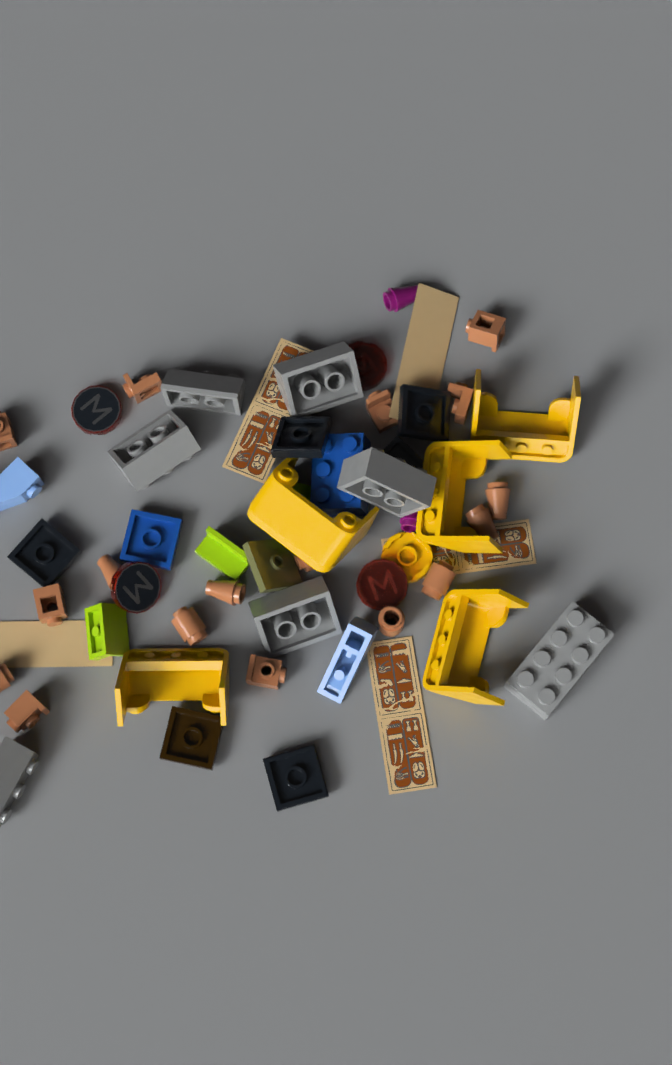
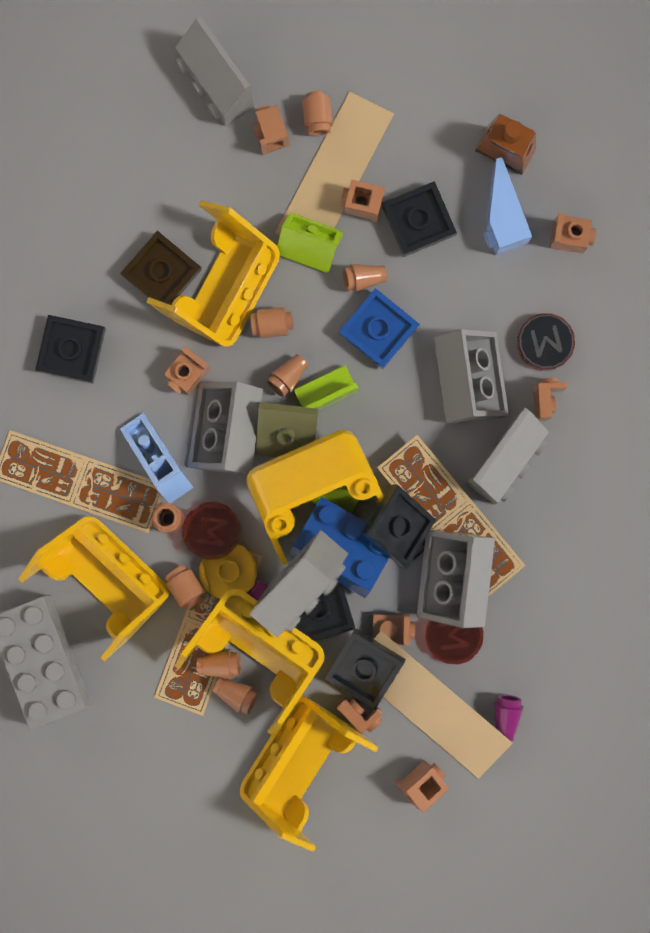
camera: 115 degrees right, 10 degrees up
(136, 587) = (336, 288): black tile -> none

